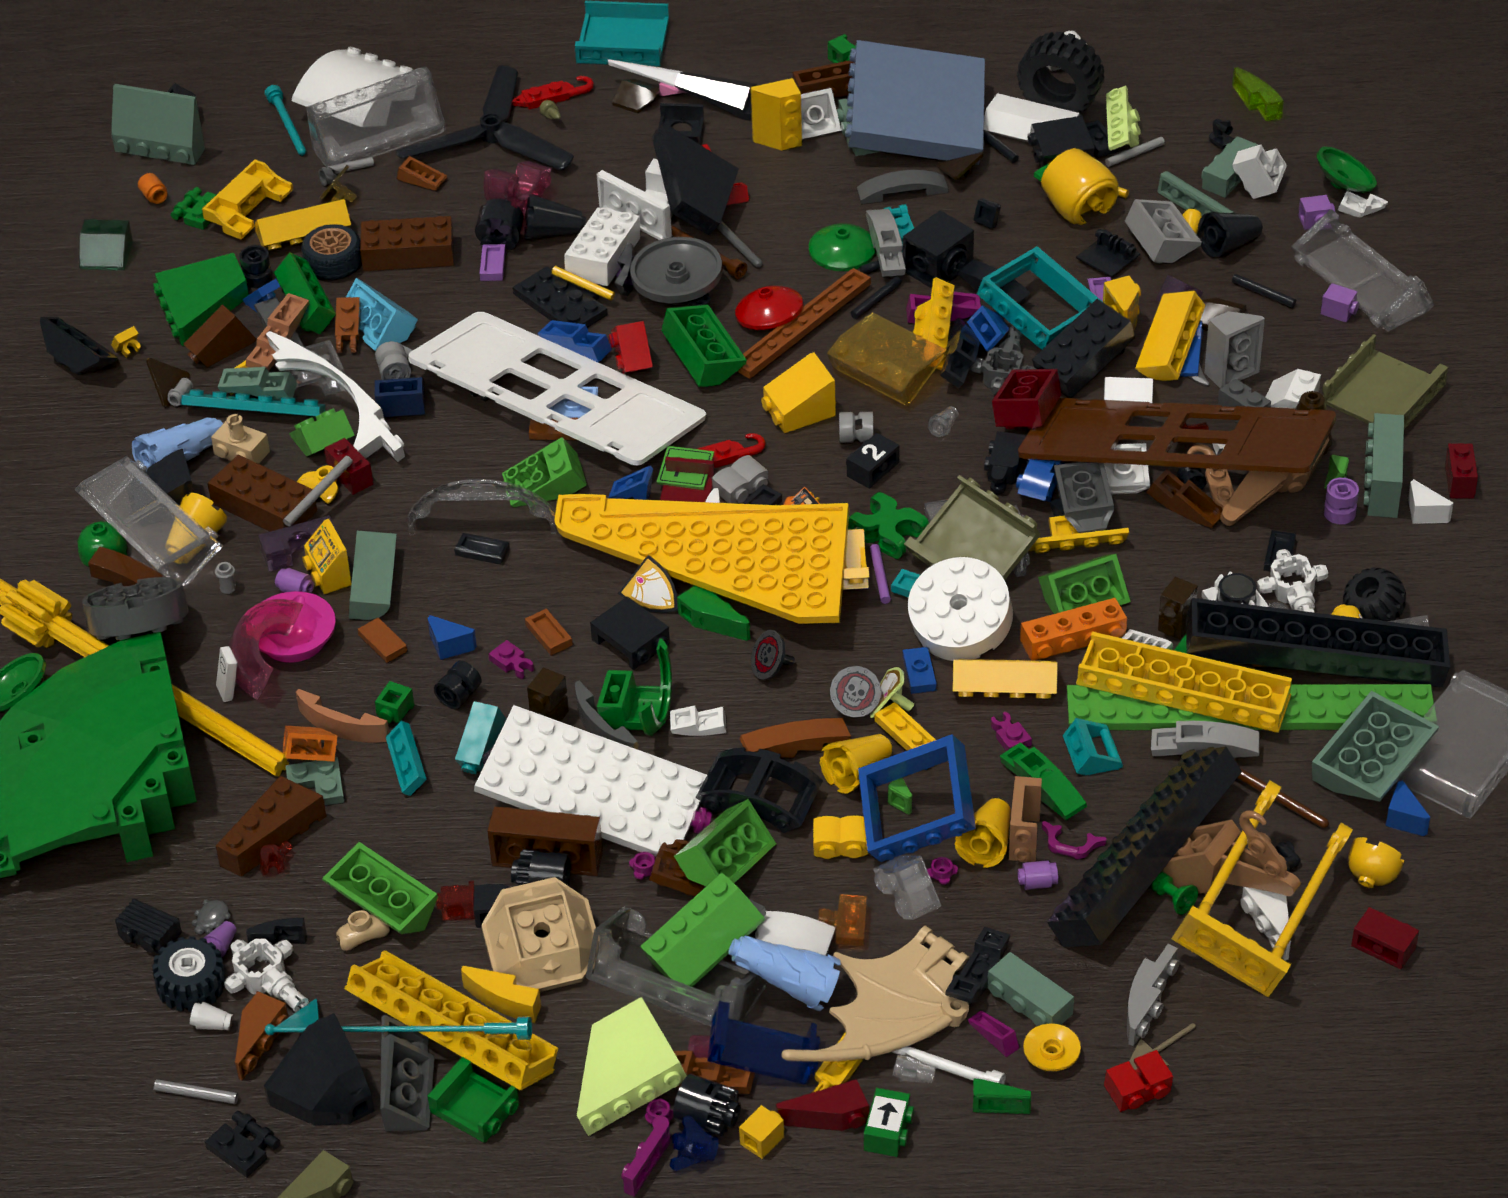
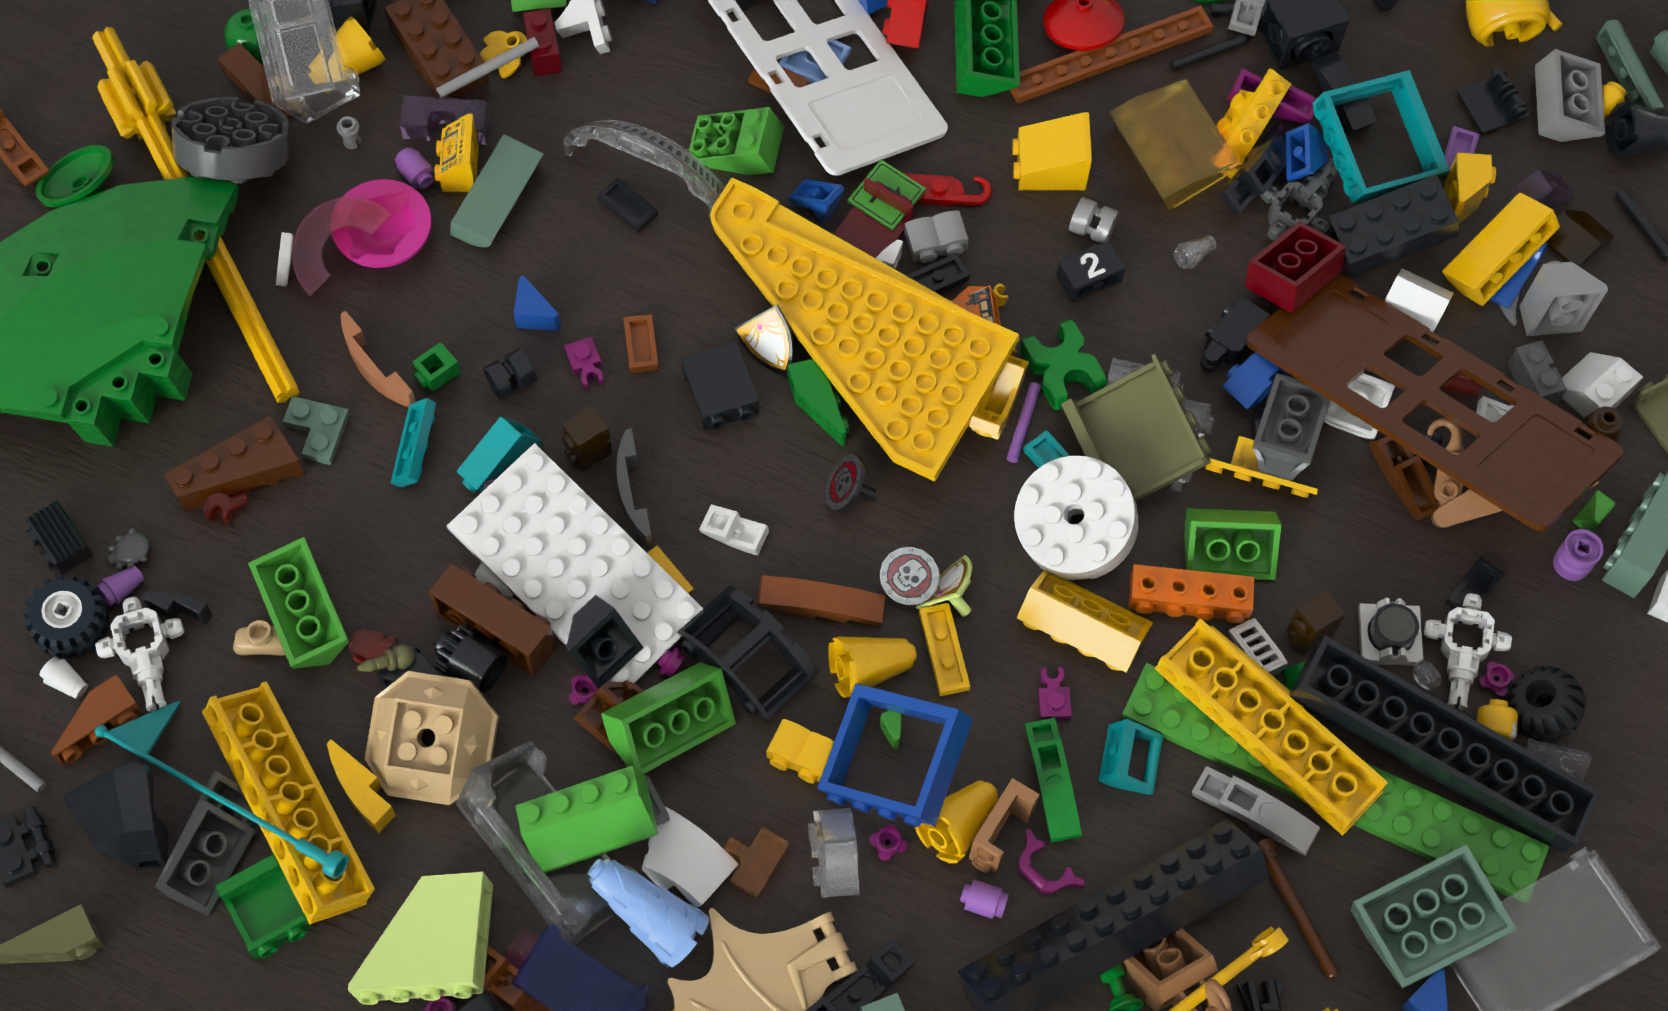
camera: 20 degrees right, 20 degrees up
(305, 743) = (318, 385): orange torso -> none
(382, 640) = (468, 278): dark orange tile -> none
(484, 891) = (400, 657): none -> olive bar
(637, 706) = (677, 482): green piece -> none
(644, 813) = (601, 641): none -> black slope
(919, 670) = (1000, 568): blue plate -> none
(1329, 598) = (1496, 670): none -> magenta plate

